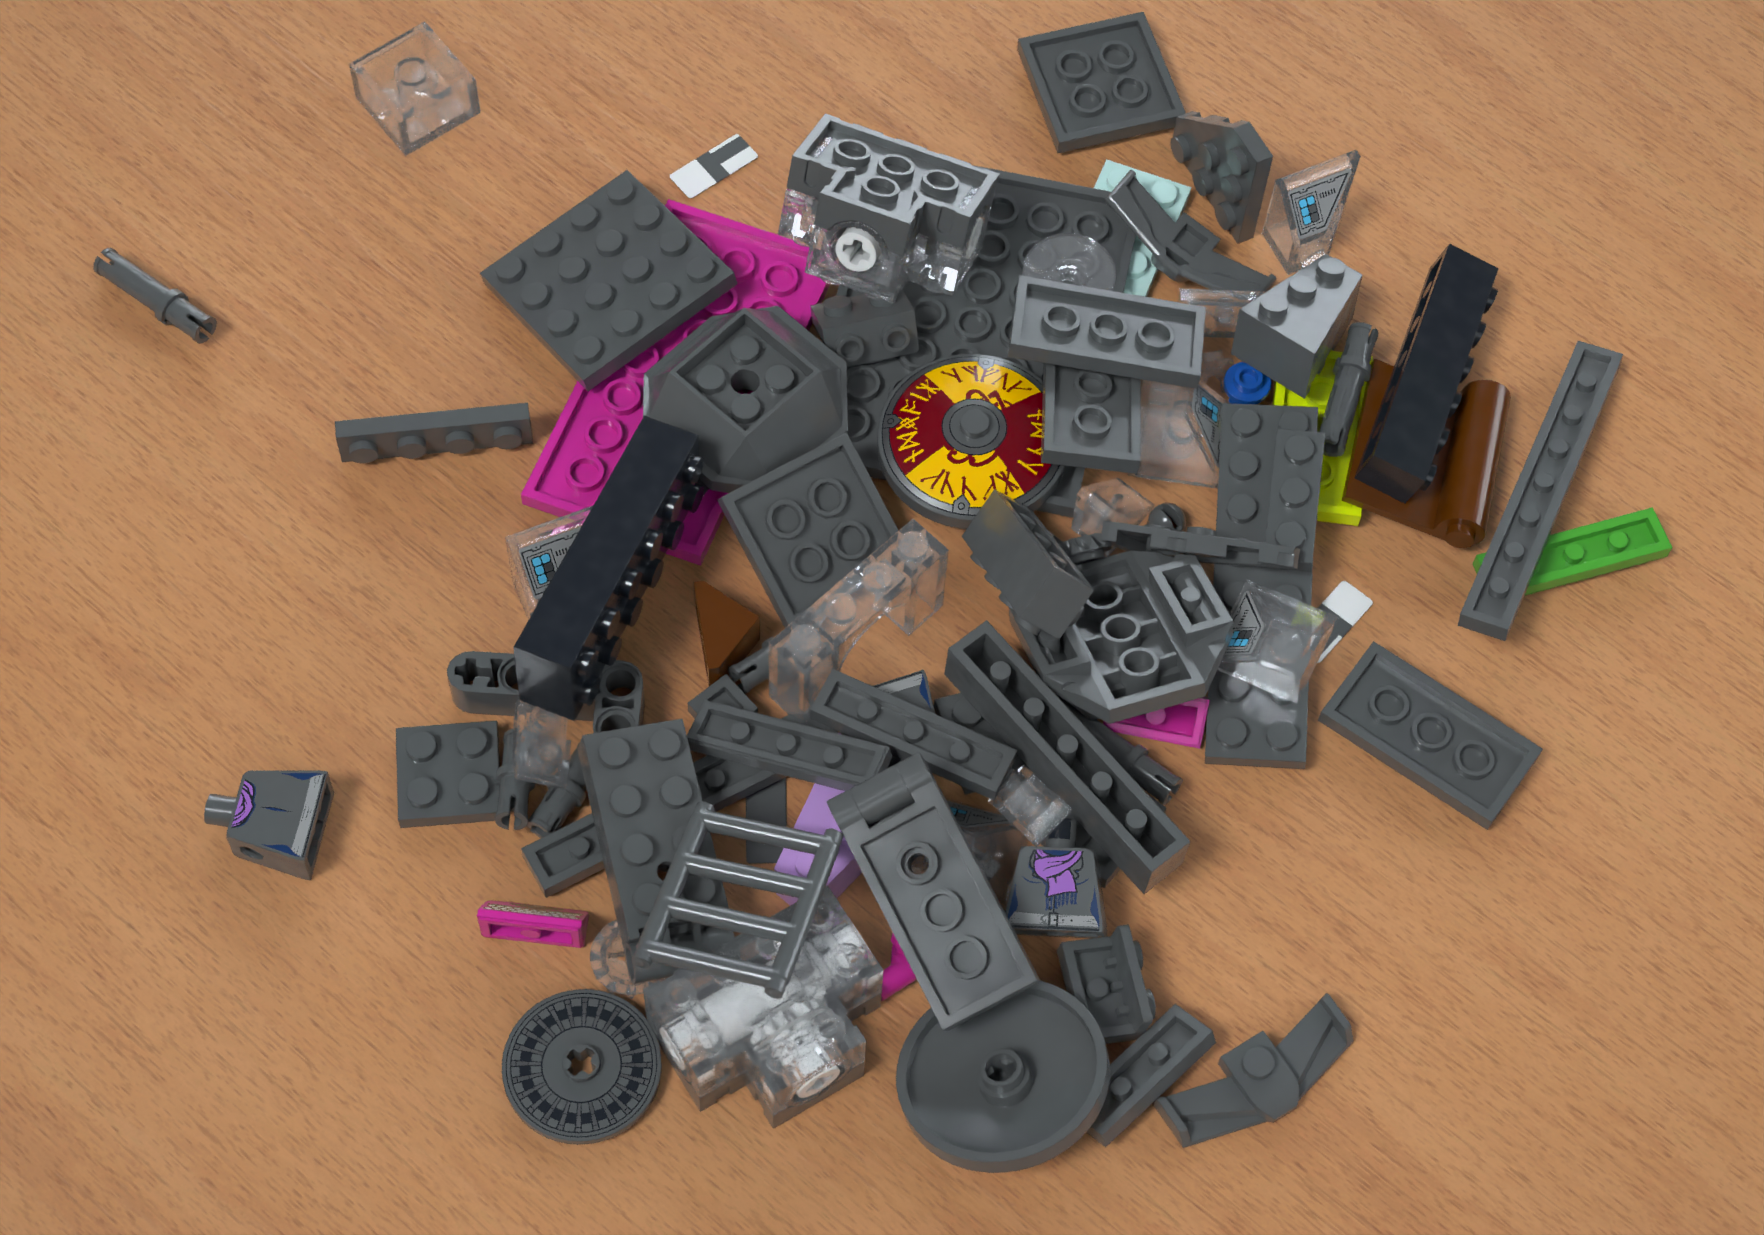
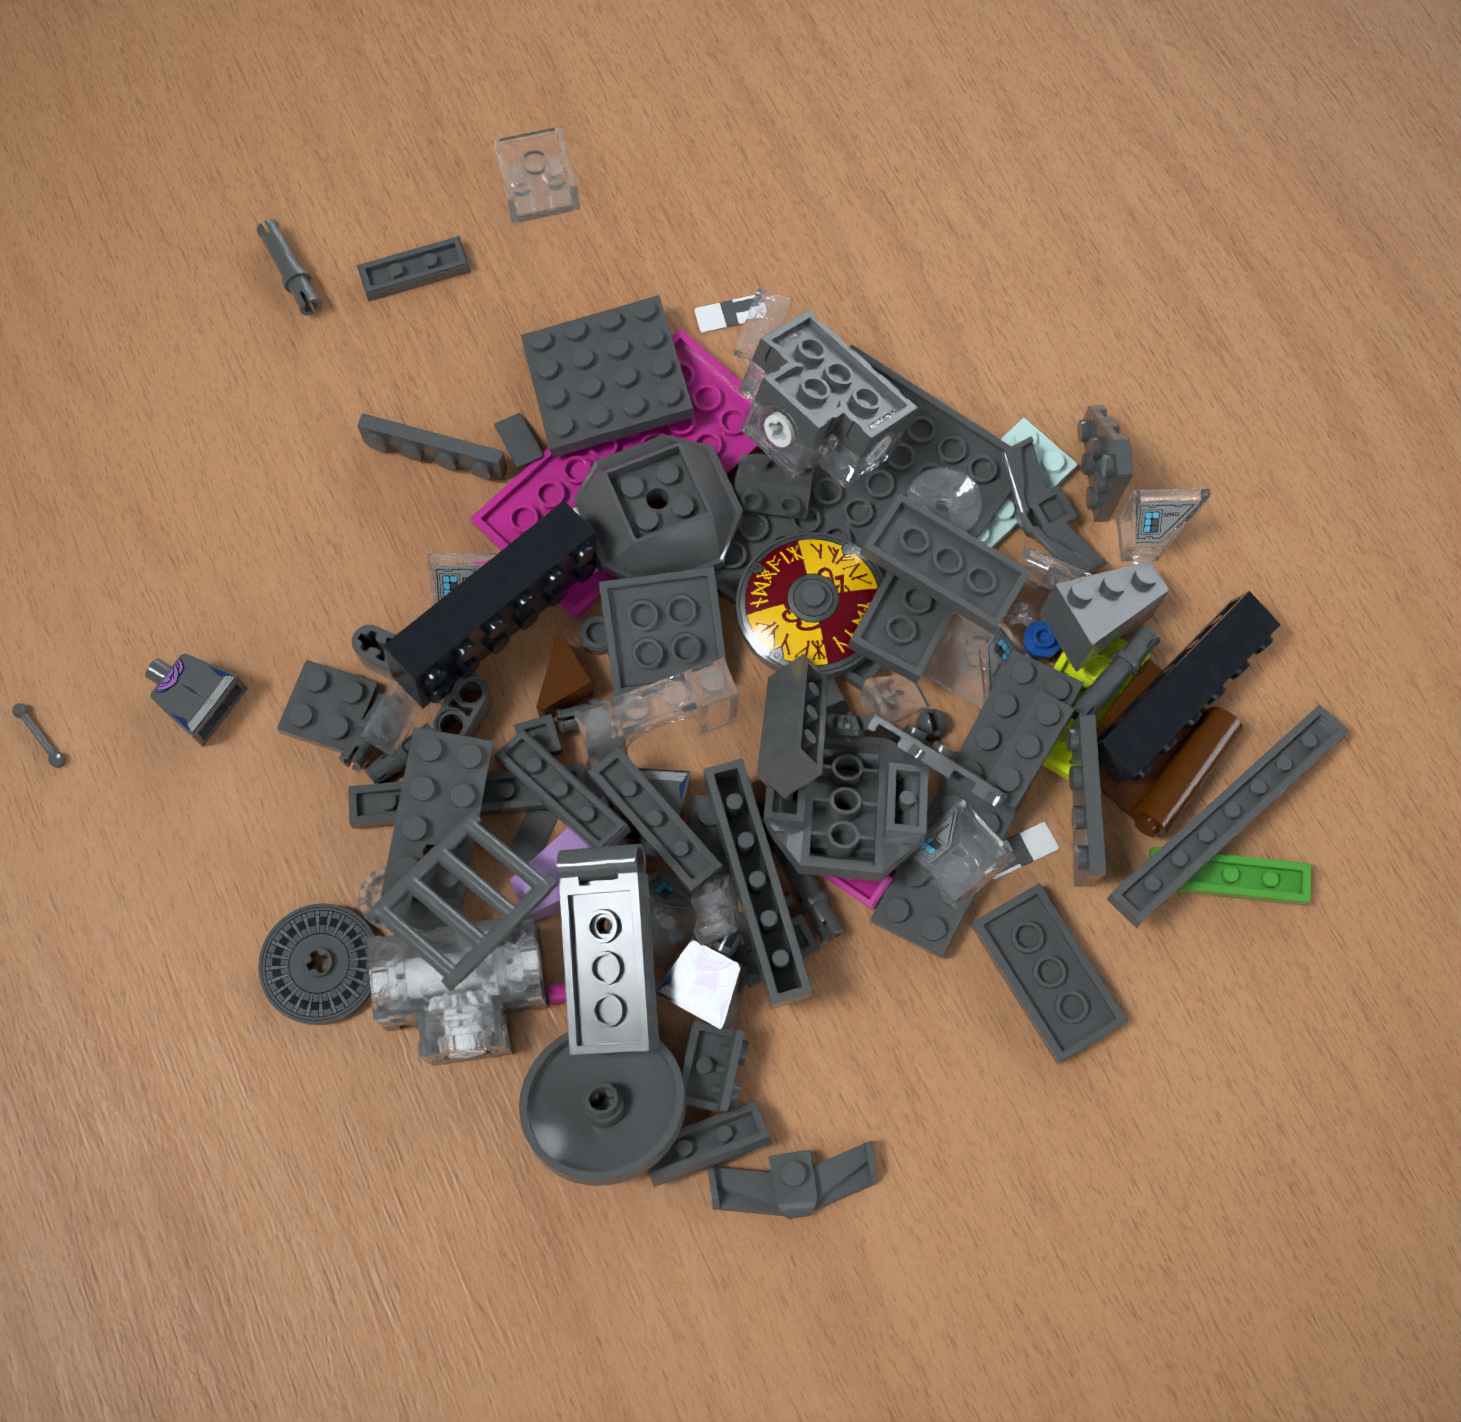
camera: 25 degrees right, 10 degrees up
(130, 964) = (55, 758): none -> dark grey hinge
(309, 246) = (413, 268): none -> dark grey tile
(533, 923) = (335, 842): dark pink slope -> none
(534, 388) = (518, 440): none -> dark grey sticker
(732, 571) = (593, 635): none -> dark grey tile
(760, 166) = (765, 315): none -> clear plate
(1100, 82) = (1048, 353): dark grey plate -> none
(1394, 544) = (1086, 812): none -> dark grey wing

